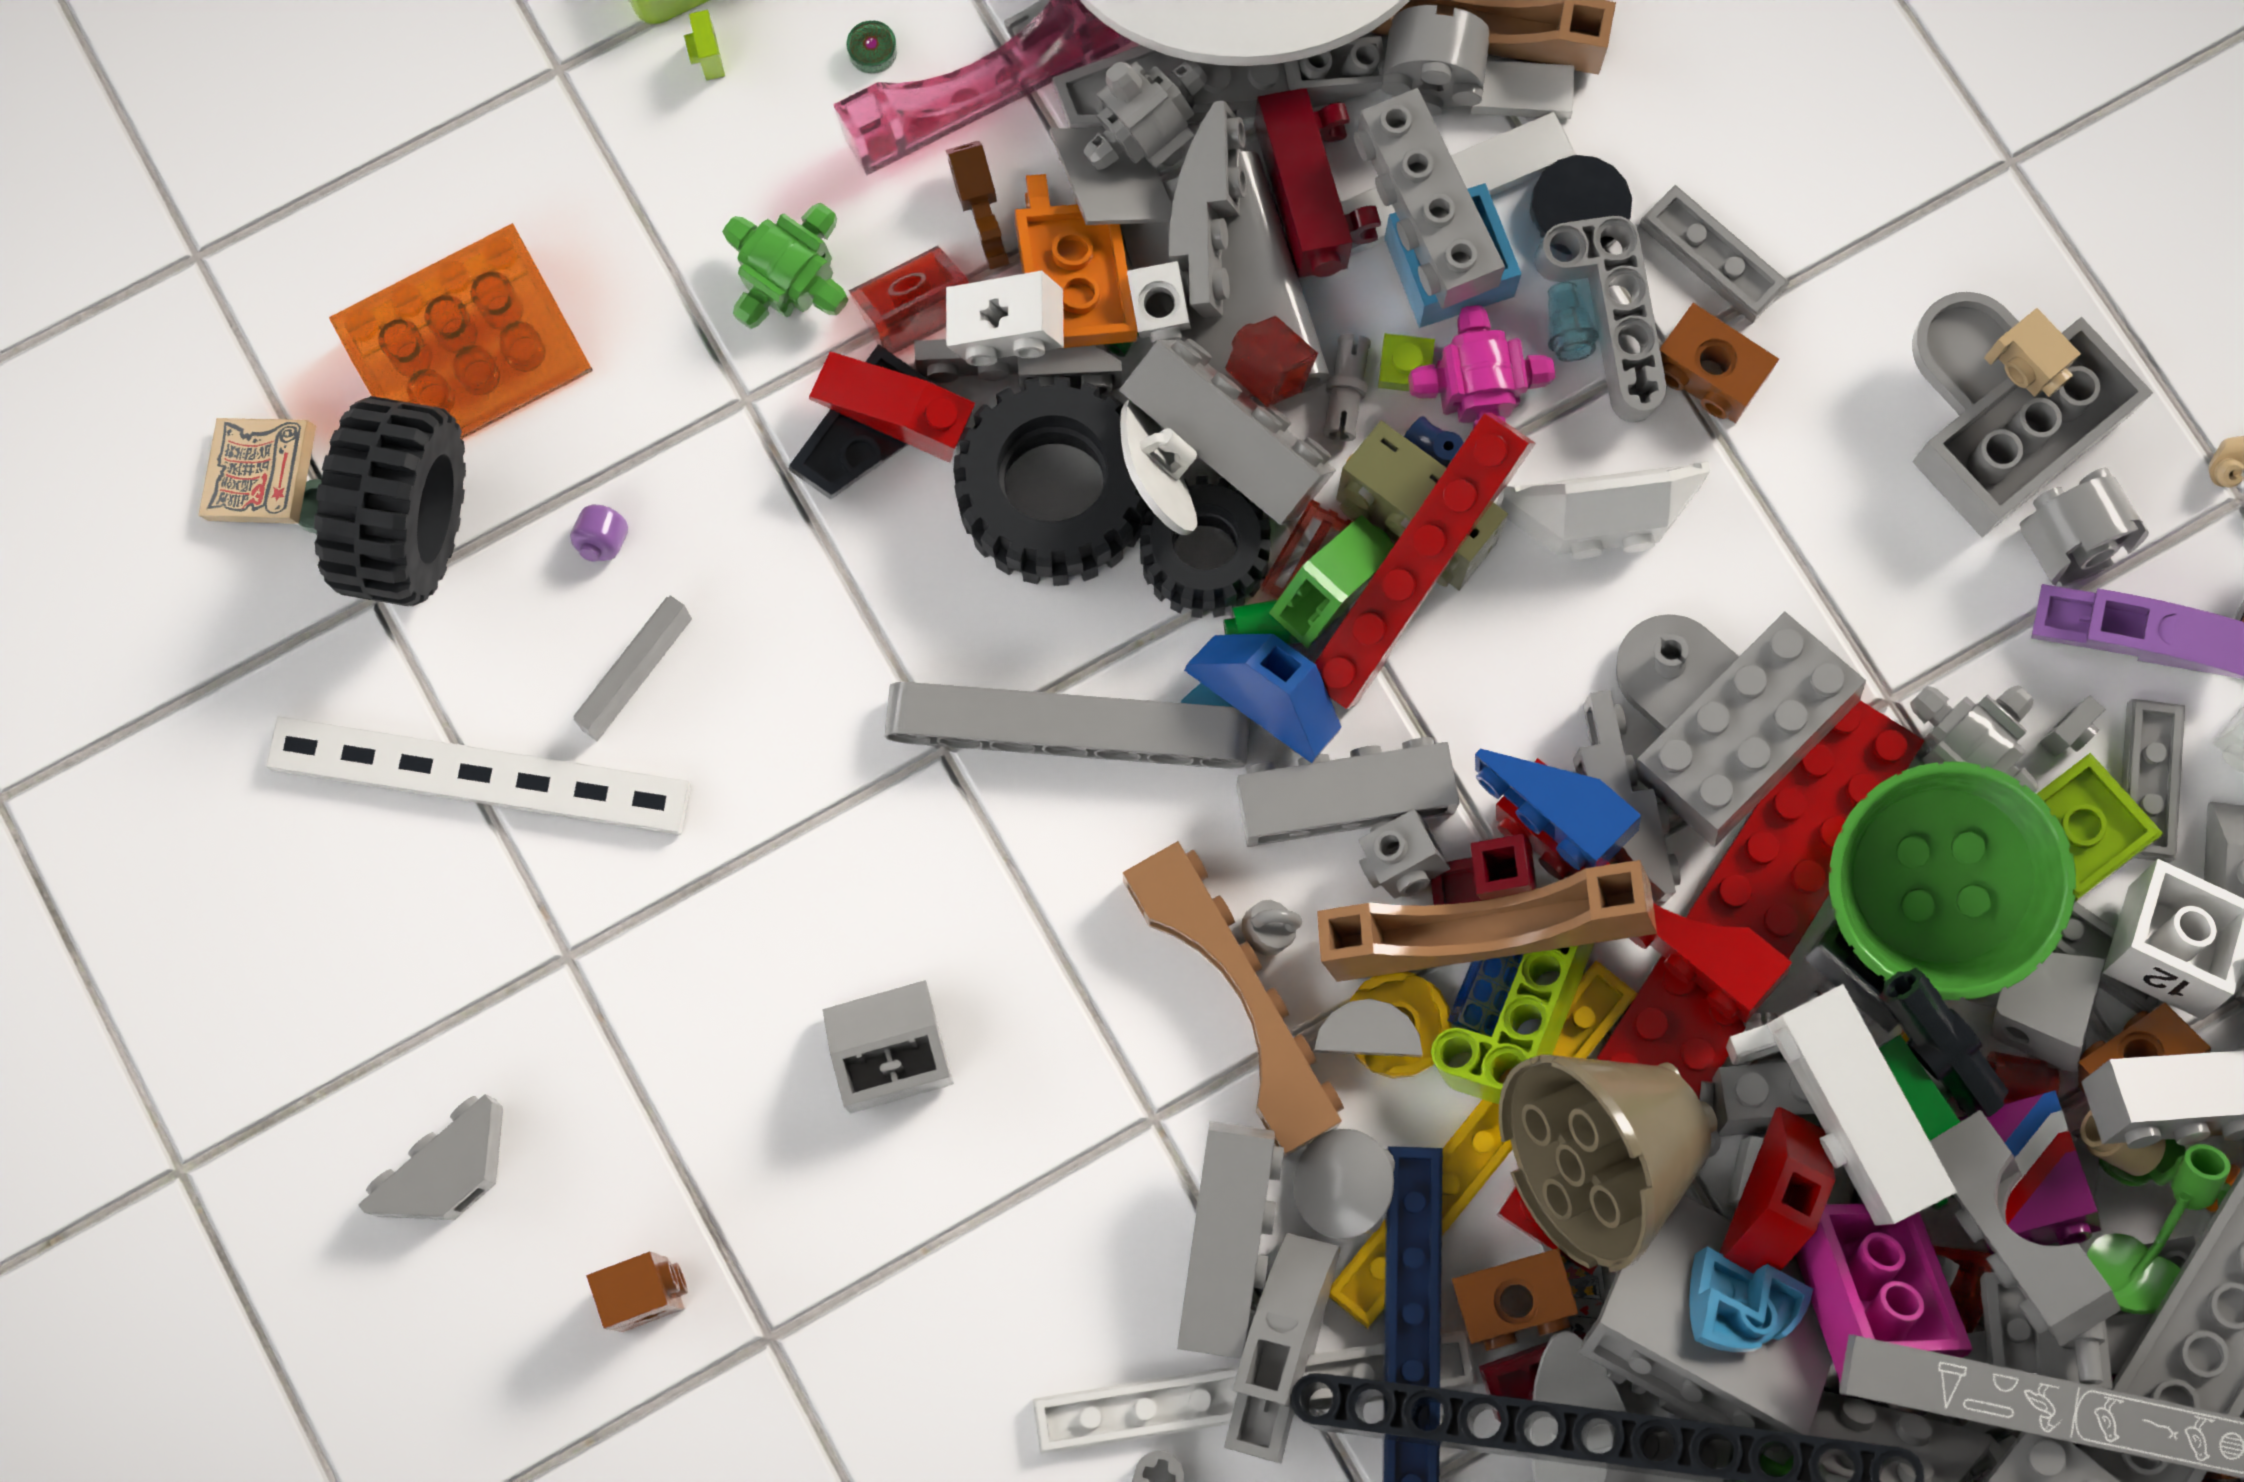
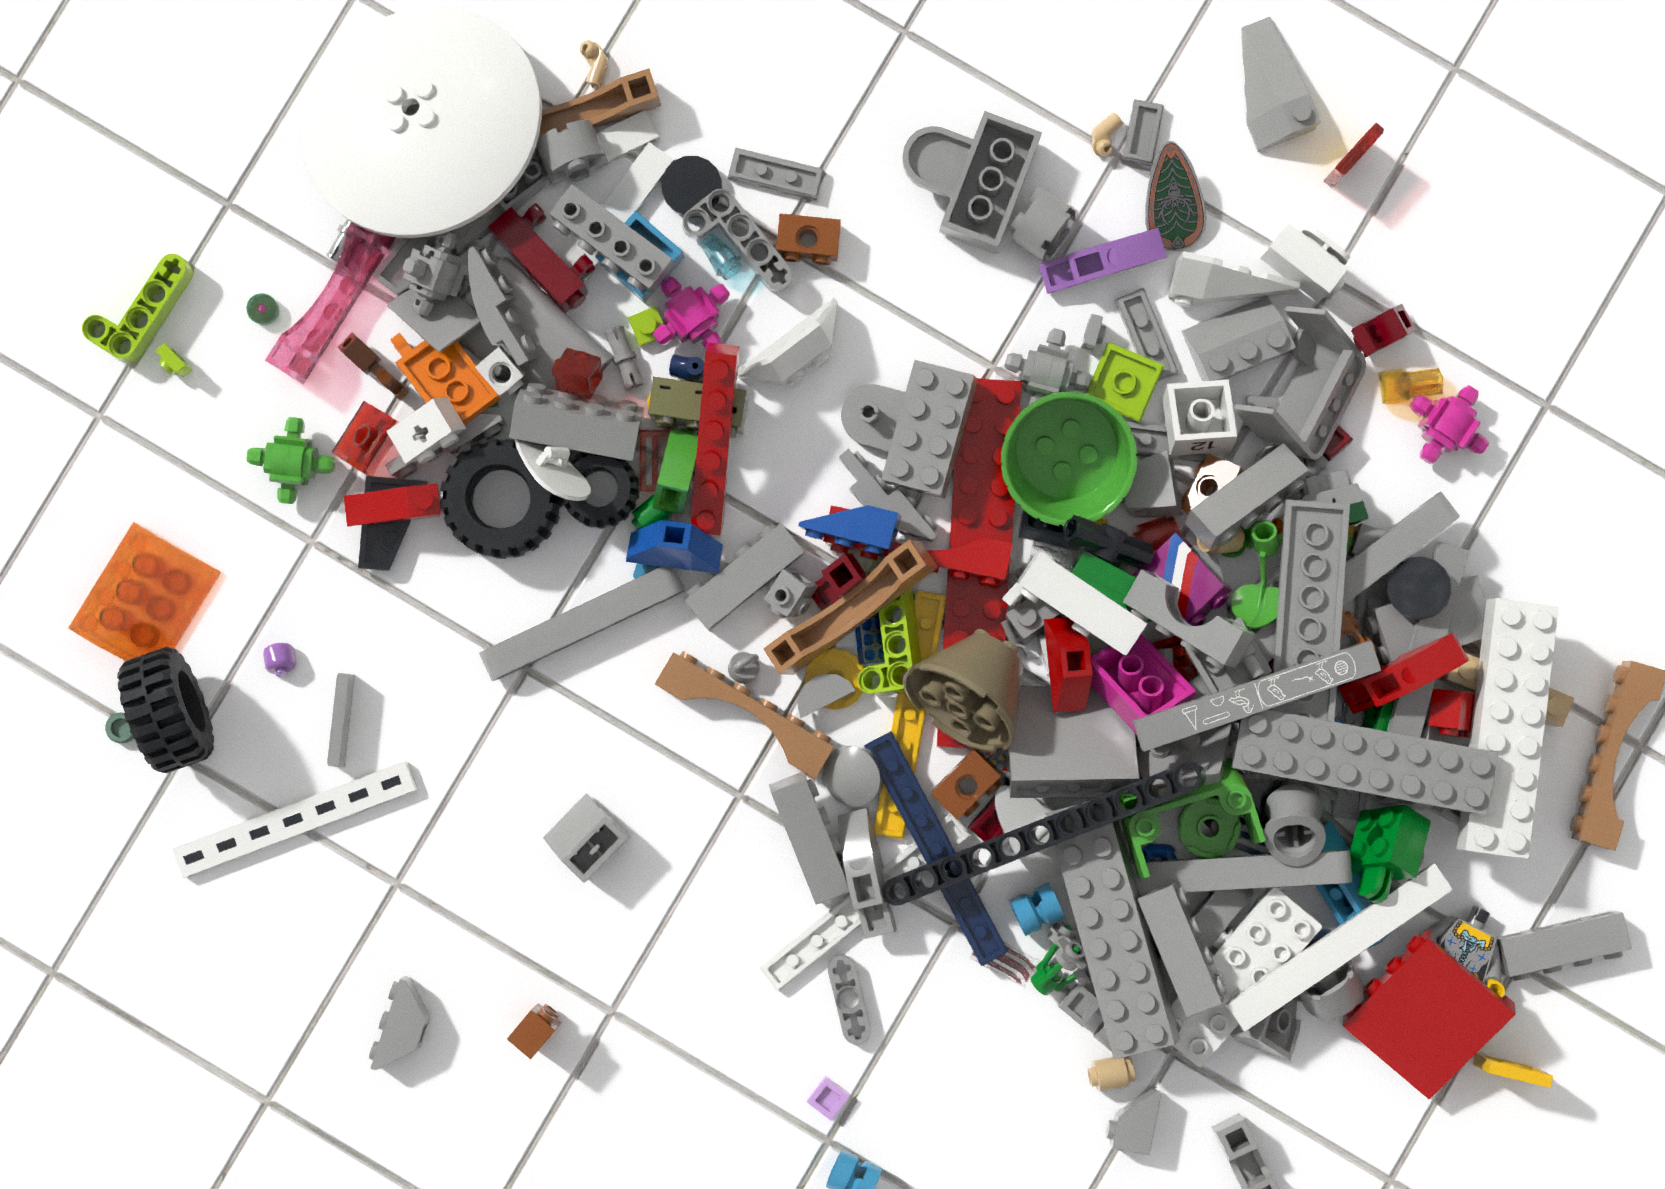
camera: 30 degrees left, 10 degrees up
(257, 470) = (79, 727): tan tile -> none
(1742, 1308) = (1076, 731): dark azure brick -> none
(2035, 355) = (971, 150): tan brick -> none

